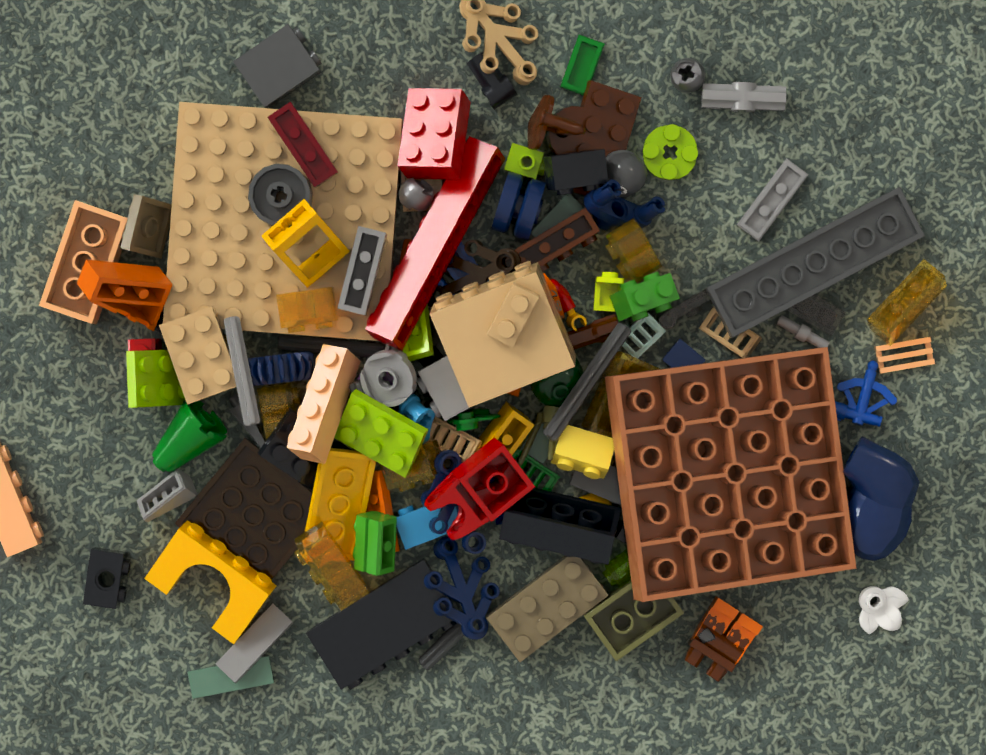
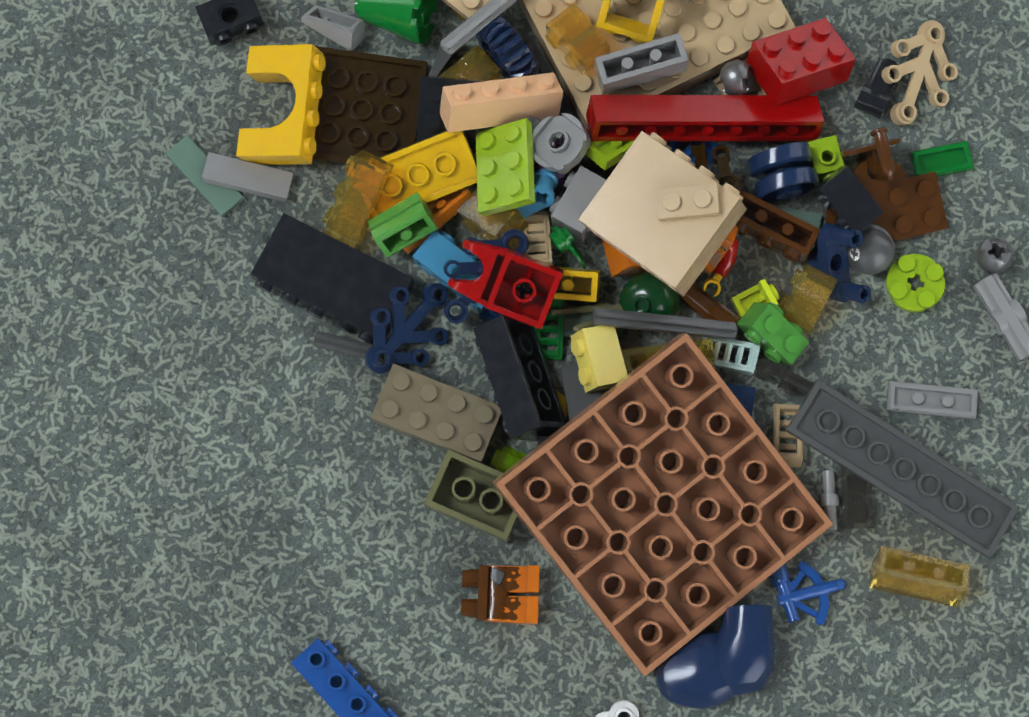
camera: 60 degrees right, 10 degrees down
(928, 351) = (877, 599): light nougat tile -> none

